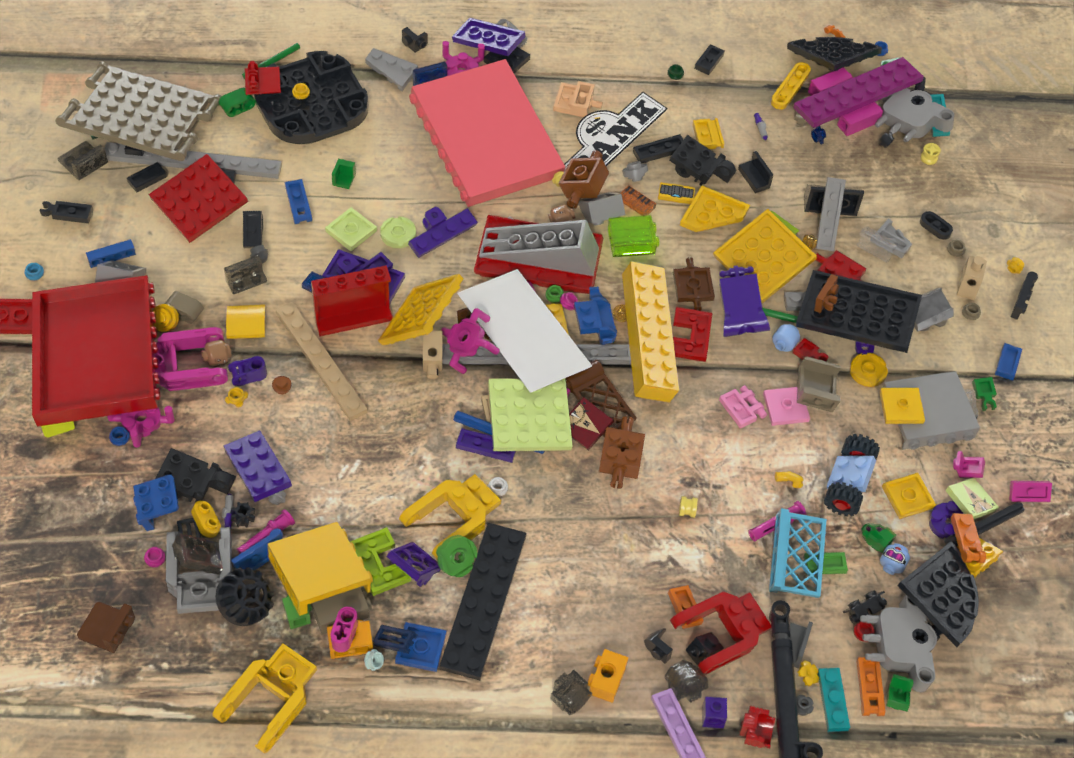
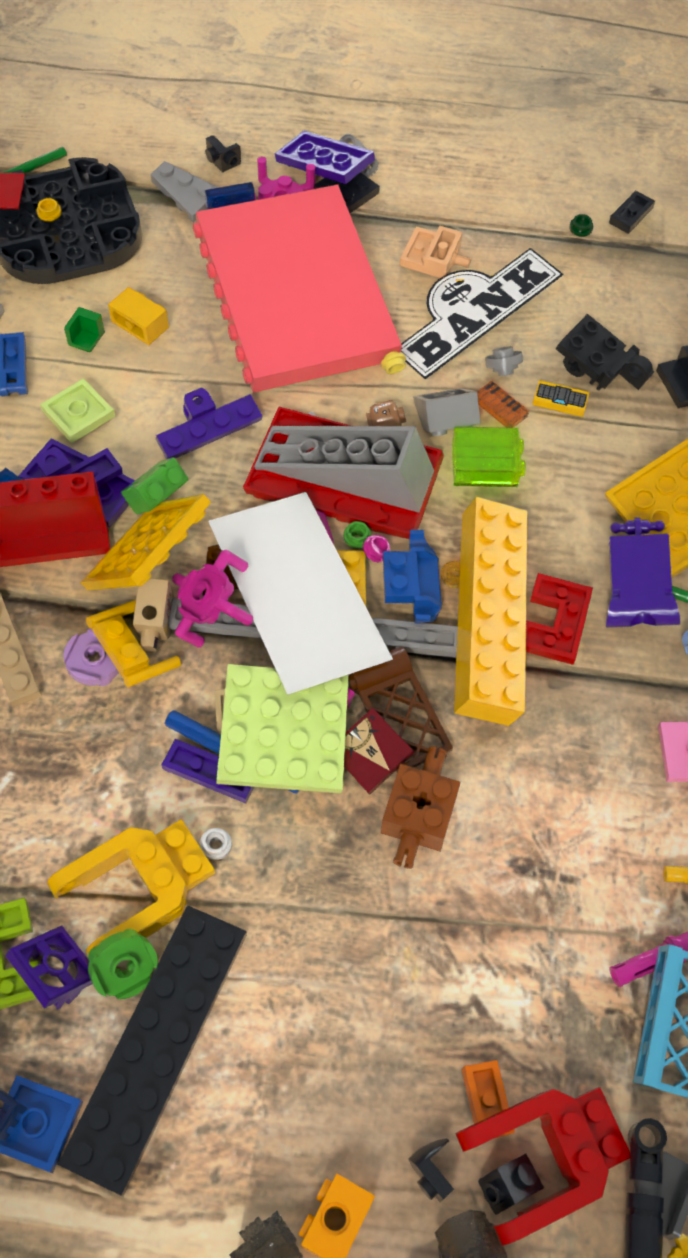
camera: 10 degrees right, 5 degrees up
(379, 161) = (138, 315): none -> yellow brick
(393, 394) = (79, 665): none -> lavender plate
(397, 232) = (144, 420): yellowish green tile -> none
(416, 274) = (155, 486): none -> bright green brick
(417, 376) = (124, 648): none -> yellow plate
(583, 178) = (426, 365): dark orange brick -> none
(657, 149) = (540, 331): black plate -> none
(688, 506) = (515, 913): light yellow wheel -> none
(693, 284) = (569, 539): reddish brown plate -> none
(708, 133) = (618, 314): yellow plate -> none
(713, 210) = (612, 429): yellow plate -> none
(738, 408) = (616, 749): bright pink plate -> none

